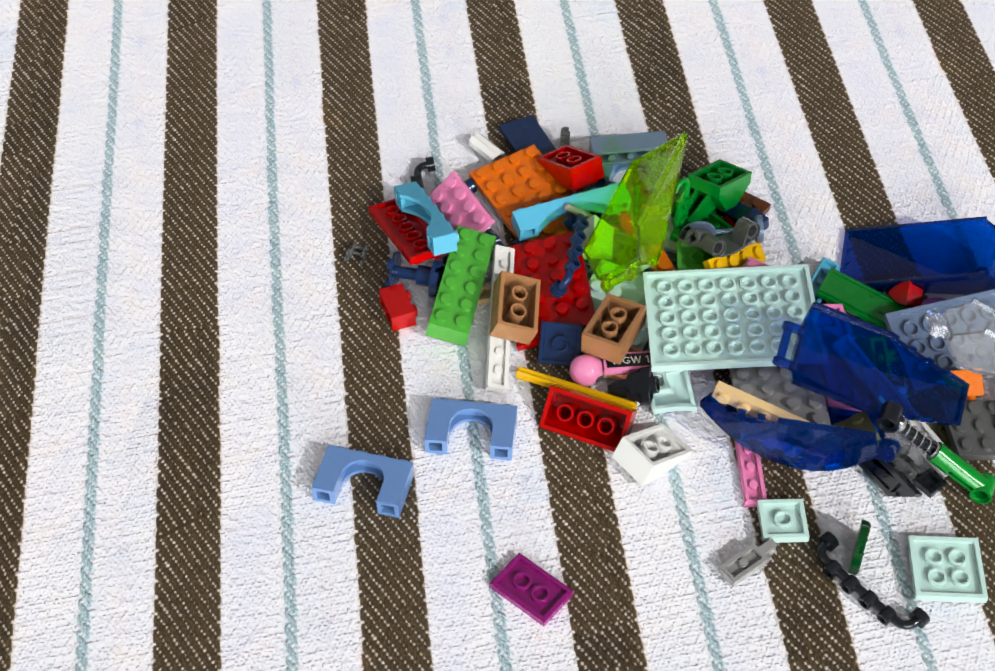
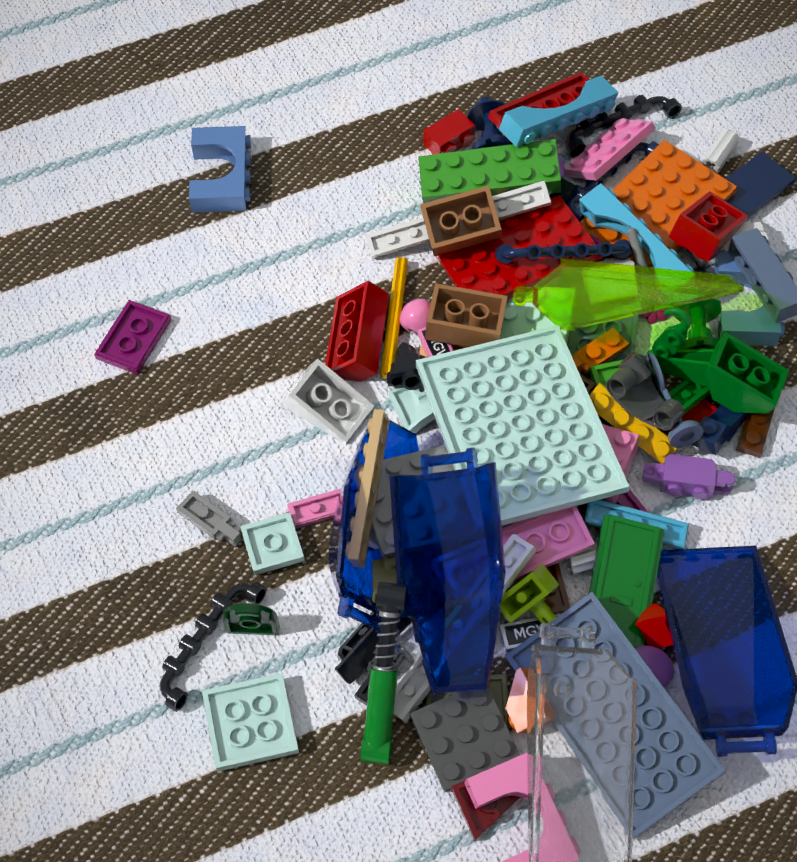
camera: 75 degrees right, 10 degrees up
(349, 253) = (516, 89): dark grey piece -> none
(448, 414) = (324, 260): medium blue arch -> none
(559, 343) = (447, 272): dark blue tile -> none
(565, 136) = (769, 217): dark grey piece -> none
(783, 244) = (688, 477): none -> medium lavender hinge

